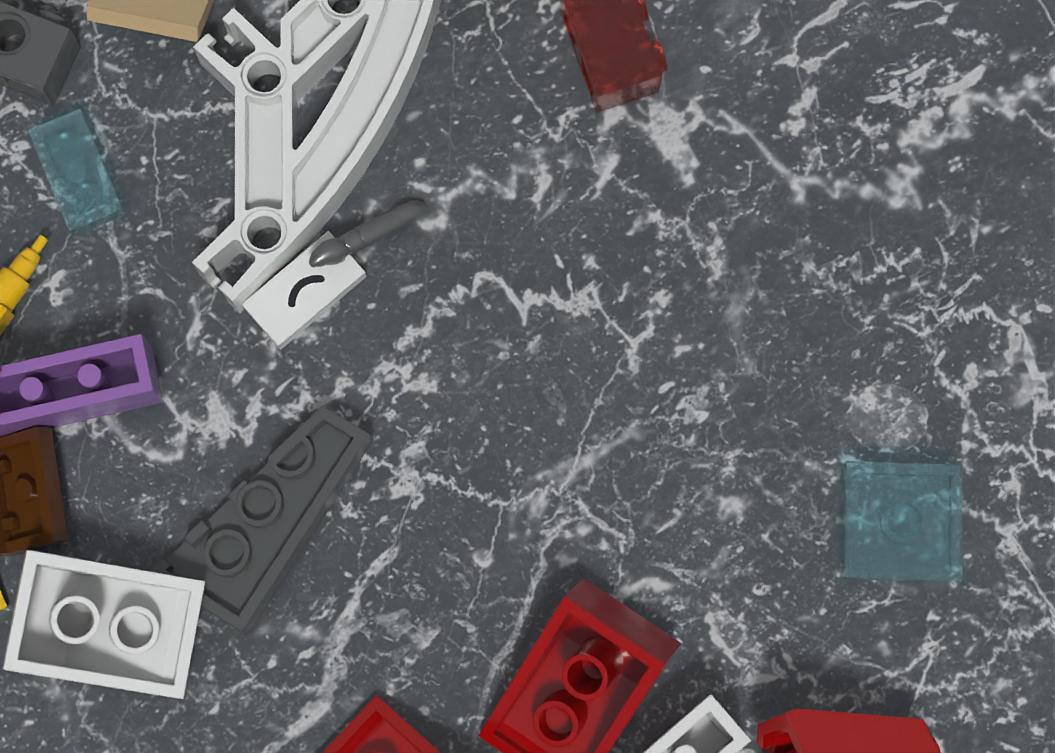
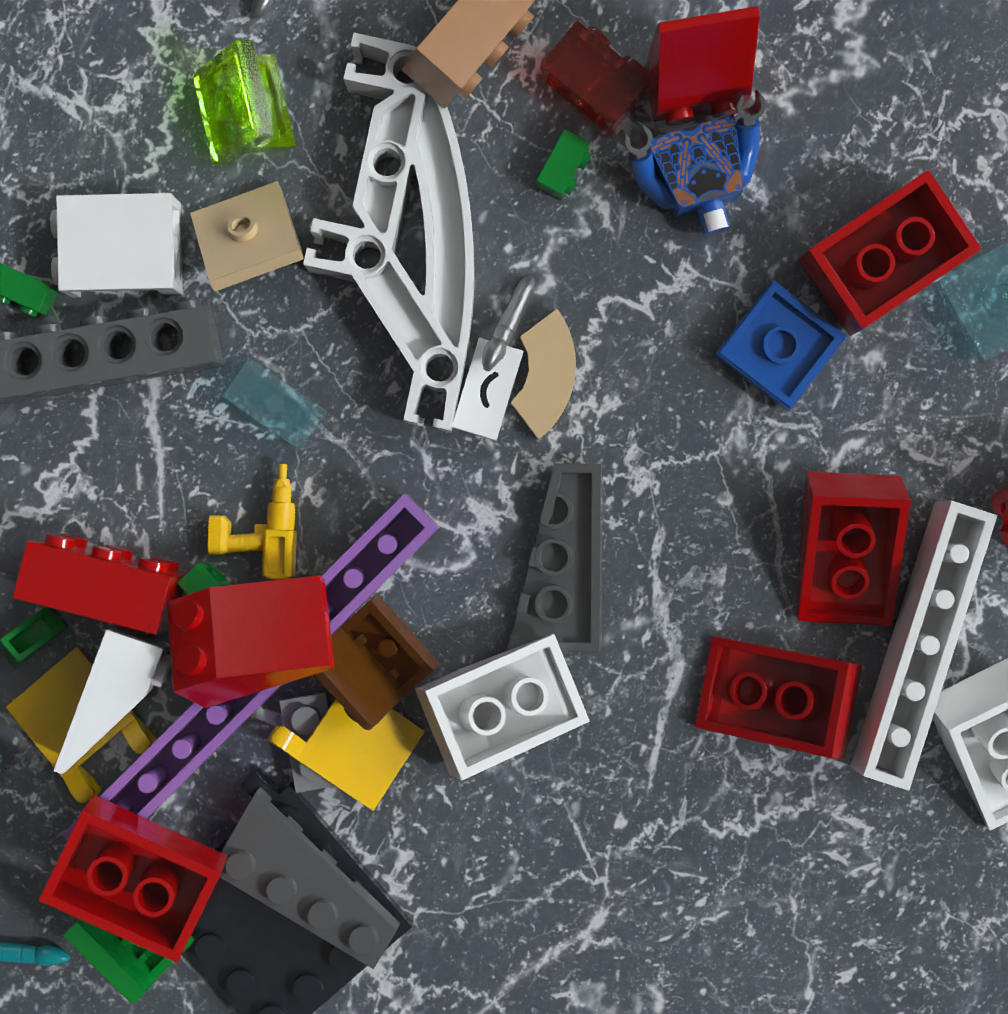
camera: 25 degrees left, 10 degrees up
(377, 314) = (549, 374): none -> tan tile
(526, 111) = (565, 160): none -> green piece
(637, 429) = (780, 345): none -> blue plate
(663, 192) = (699, 164): none -> torso
(720, 89) = (701, 65): none -> red slope
(806, 398) = (889, 253): none -> red brick

